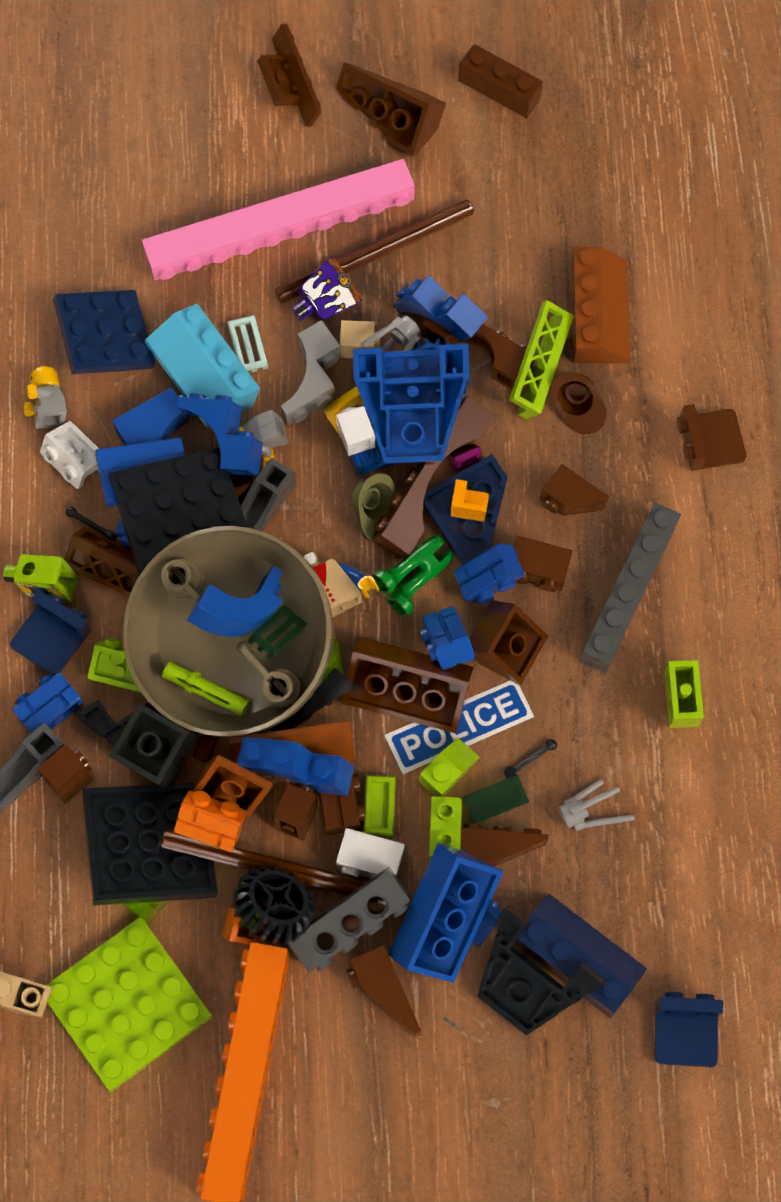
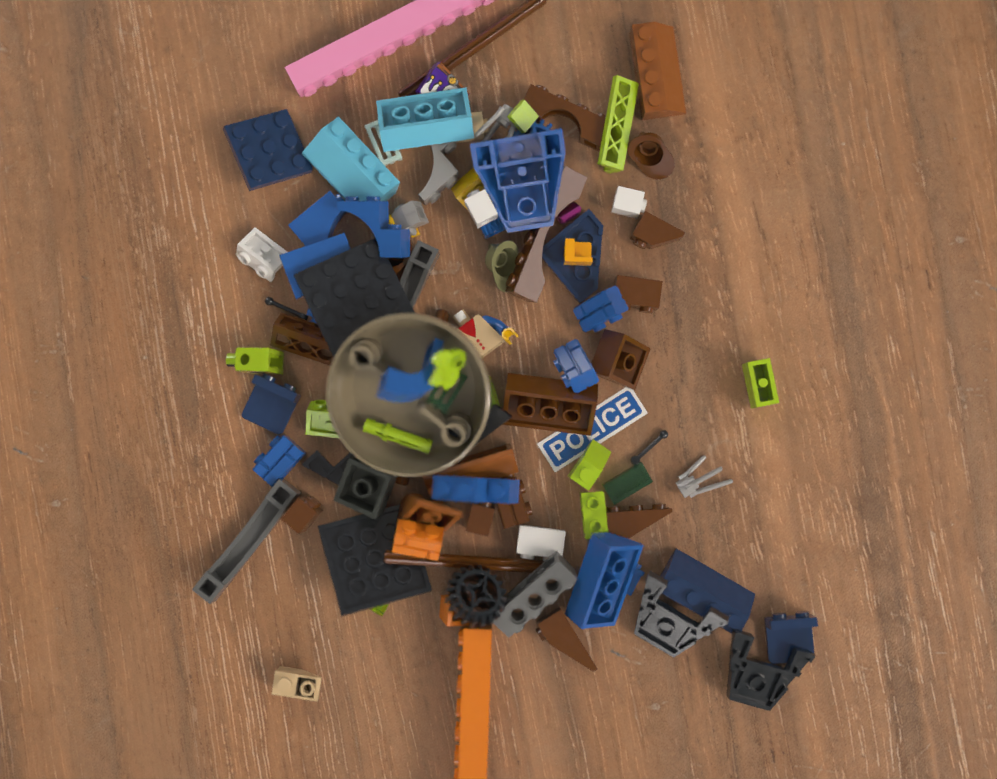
camera: 10 degrees left, 15 degrees up
(50, 402) = (231, 207): light grey piece -> none
(126, 1004) = (377, 675): lime plate -> none
(281, 601) = (447, 367): none -> lime plate
(302, 319) = (424, 119): none -> medium azure slope
(379, 806) = (541, 500): lime tile -> none
(424, 331) = (522, 116): none -> lime tile
(430, 566) = (551, 301): green piece -> none
(431, 301) = (545, 97): blue arch -> none
(543, 453) = (629, 202): none -> white brick
(629, 588) = (710, 303): dark grey arch -> none
(634, 1081) = (757, 681): none -> black wing
(710, 438) = (758, 170): reddish brown bracket -> none

